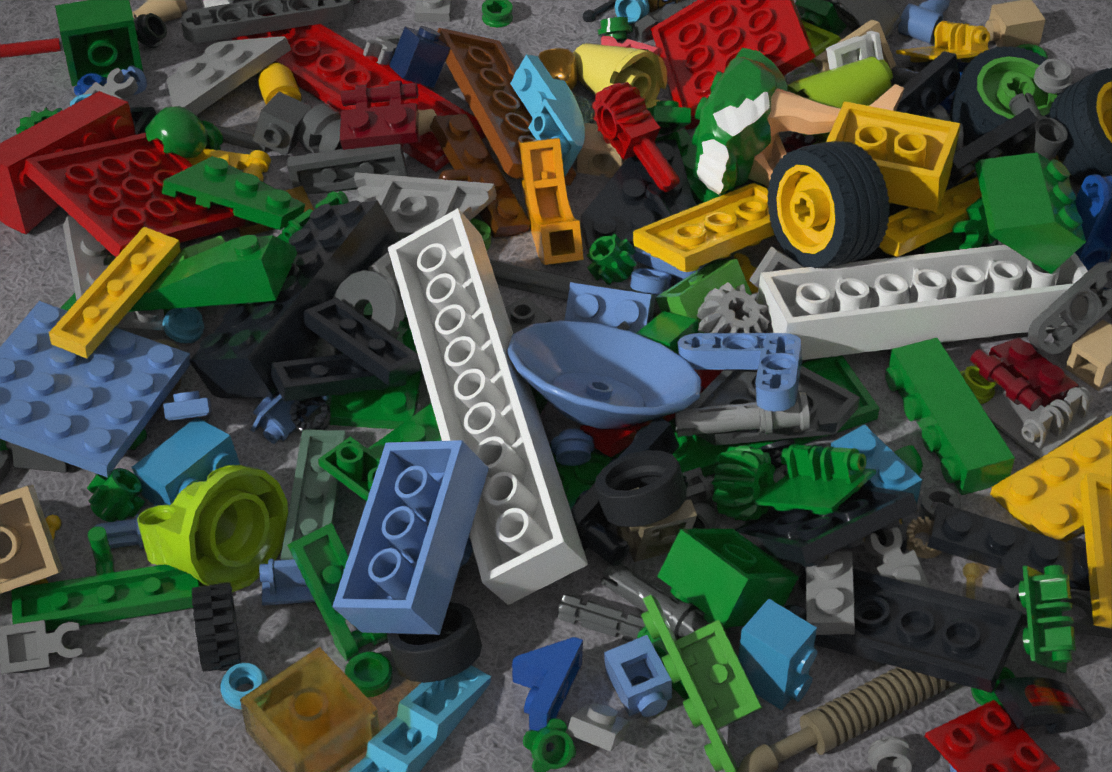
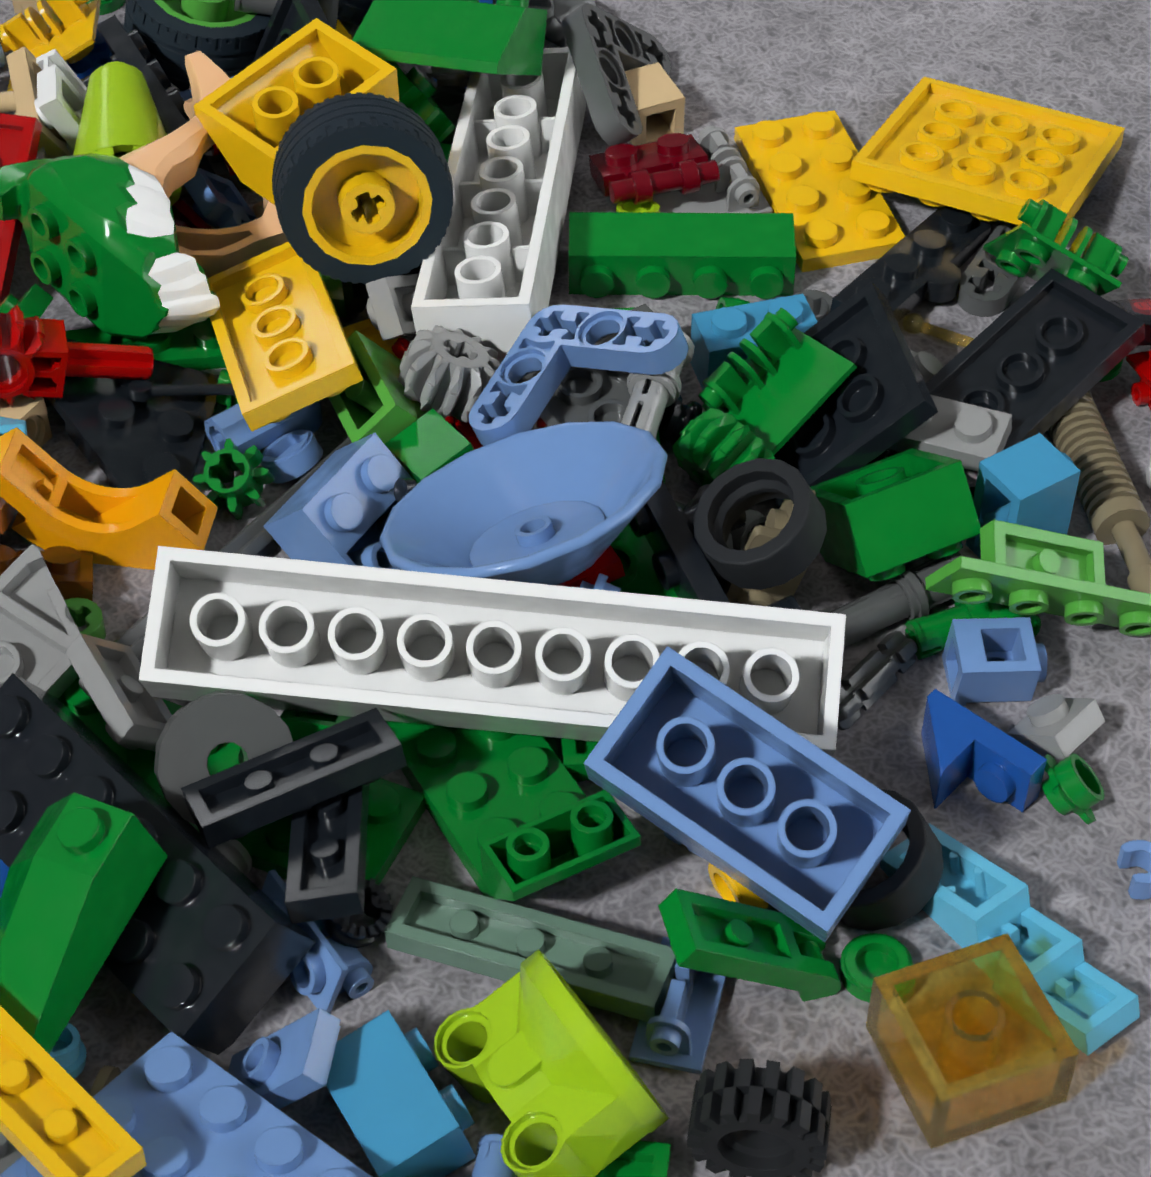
camera: 70 degrees left, 0 degrees up
(237, 675) = (867, 1113): medium azure plate -> none

